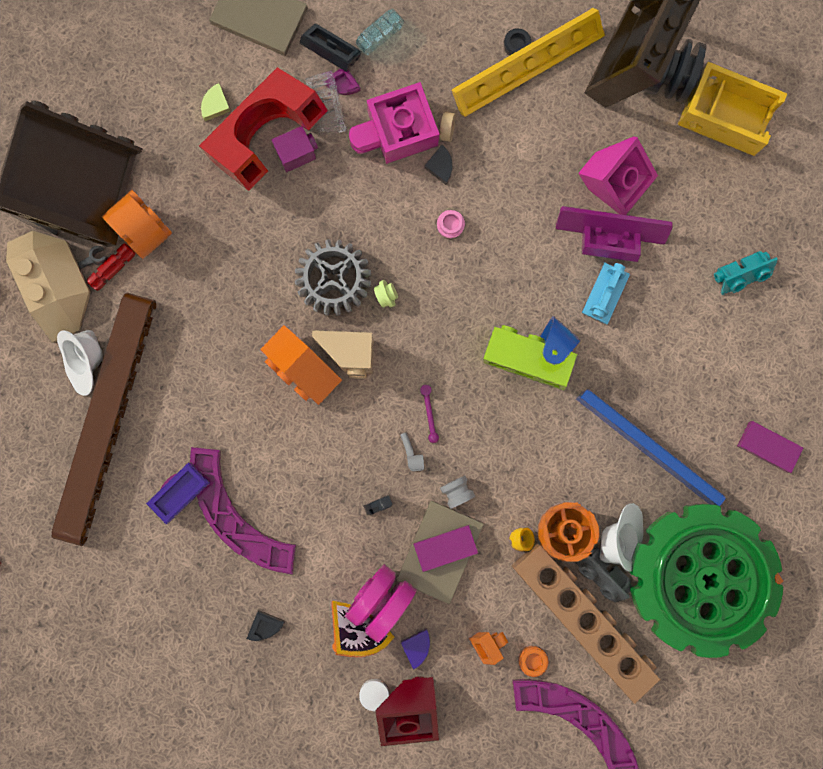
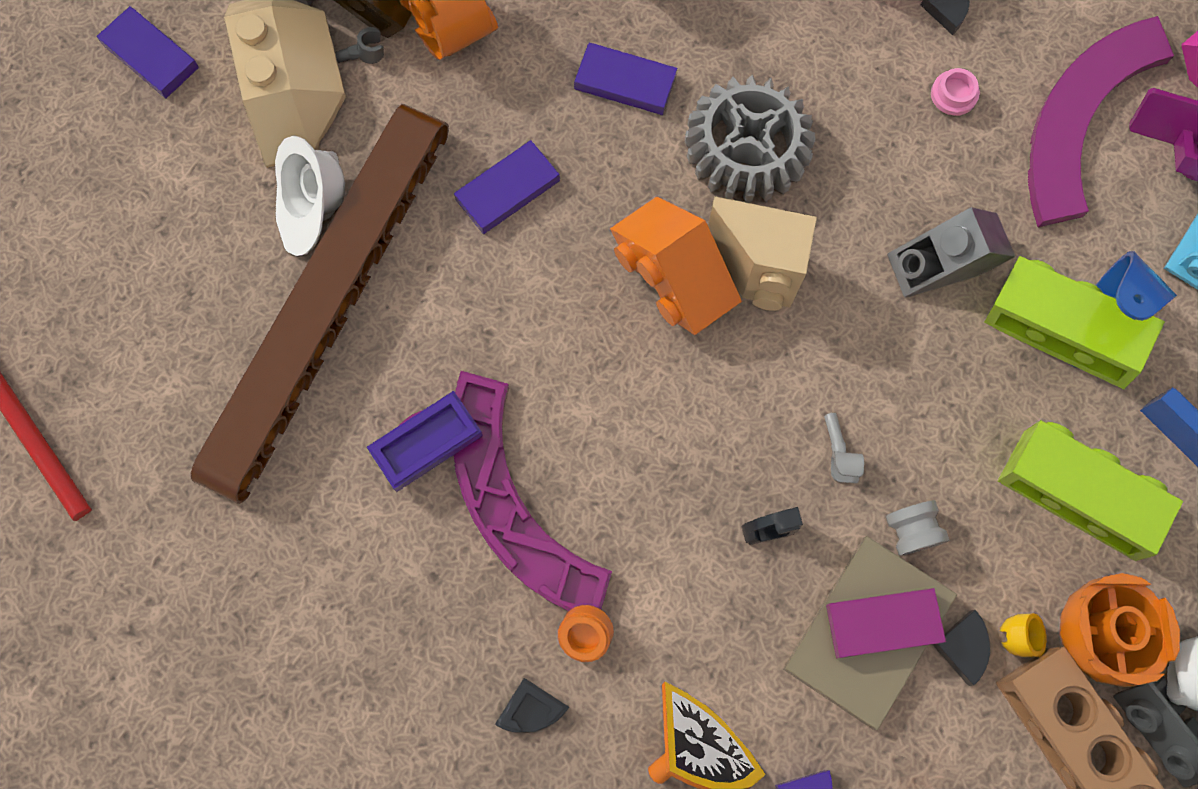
camera: 15 degrees right, 10 degrees down
(111, 267) = (386, 65): red axle -> none
(197, 330) = (507, 187): none -> dark purple tile
(254, 249) = (625, 78): none -> dark purple tile
(286, 582) = (585, 633): none -> orange tile
(382, 604) = (765, 706): dark pink wheel -> none
(386, 294) = (835, 180): yellowish green plate -> none
(426, 391) = (879, 350): magenta hinge -> none
(458, 327) = (951, 252): none -> flat silver slope
(492, 550) = (967, 647): none -> black tile
(519, 221) = (1069, 107): none -> magenta tile
(549, 452) = (1091, 490): none -> lime brick

